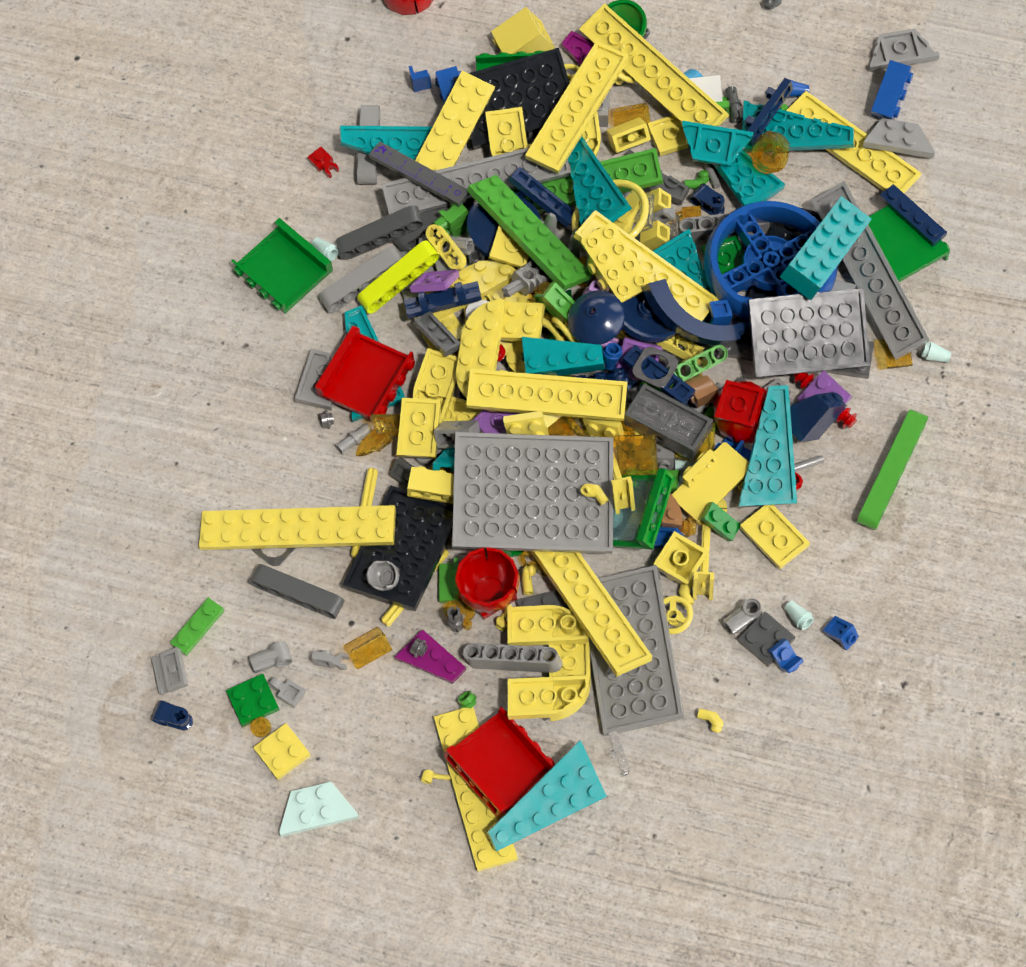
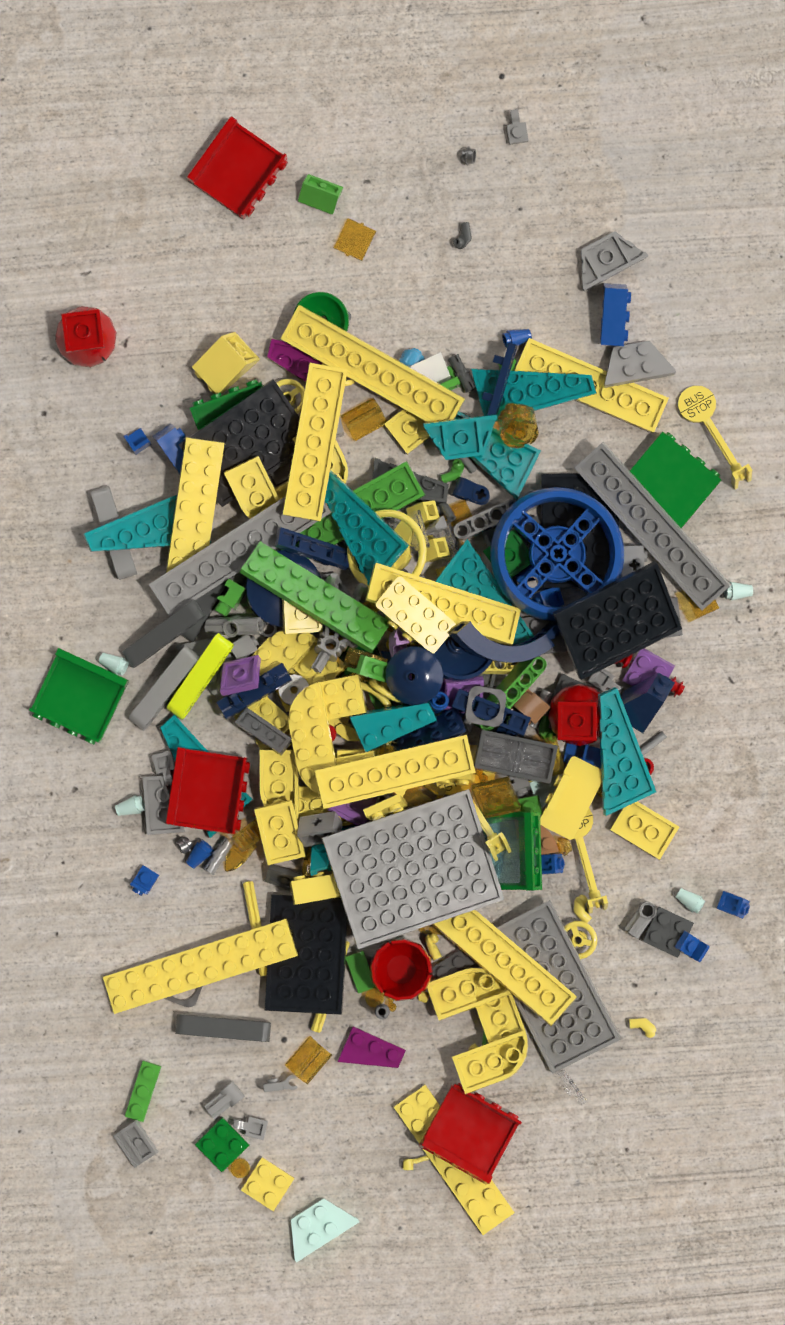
camera: 25 degrees left, 20 degrees up
(169, 715) = (151, 1186): dark blue piece -> none
(276, 440) = (144, 881): none -> blue bracket
(290, 371) = (130, 806): none -> light aqua cone
(323, 160) = (72, 563): red plate -> none
(333, 343) = (164, 764): none -> light grey plate
(336, 430) = (200, 852): none -> blue cone
(383, 575) = (302, 995): light grey hair -> none
(418, 648) = (358, 1049): flat silver plate -> none
(419, 174) = (183, 563): dark grey tile -> none
(438, 245) = (229, 622): light yellow beam -> none
(467, 699) = (418, 1081): bright green plate -> none
(520, 662) = (439, 1036): light grey beam -> none
(557, 794) = (530, 1148): wing -> none
(595, 491) = (469, 850): light yellow arm -> none
(628, 134) = (370, 444): light yellow brick -> none
(679, 208) = (444, 509): none -> dark grey arm
(680, 559) = (568, 884): light yellow slope -> none
(720, 312) = (527, 626): blue panel -> none
(720, 521) = (591, 833): plate -> none
(825, 248) = (610, 534): brick -> none
(892, 469) = (733, 726): bright green beam -> none
(913, 215) = (676, 453): dark blue plate -> none
(949, 189) = (697, 406): none -> light yellow piece

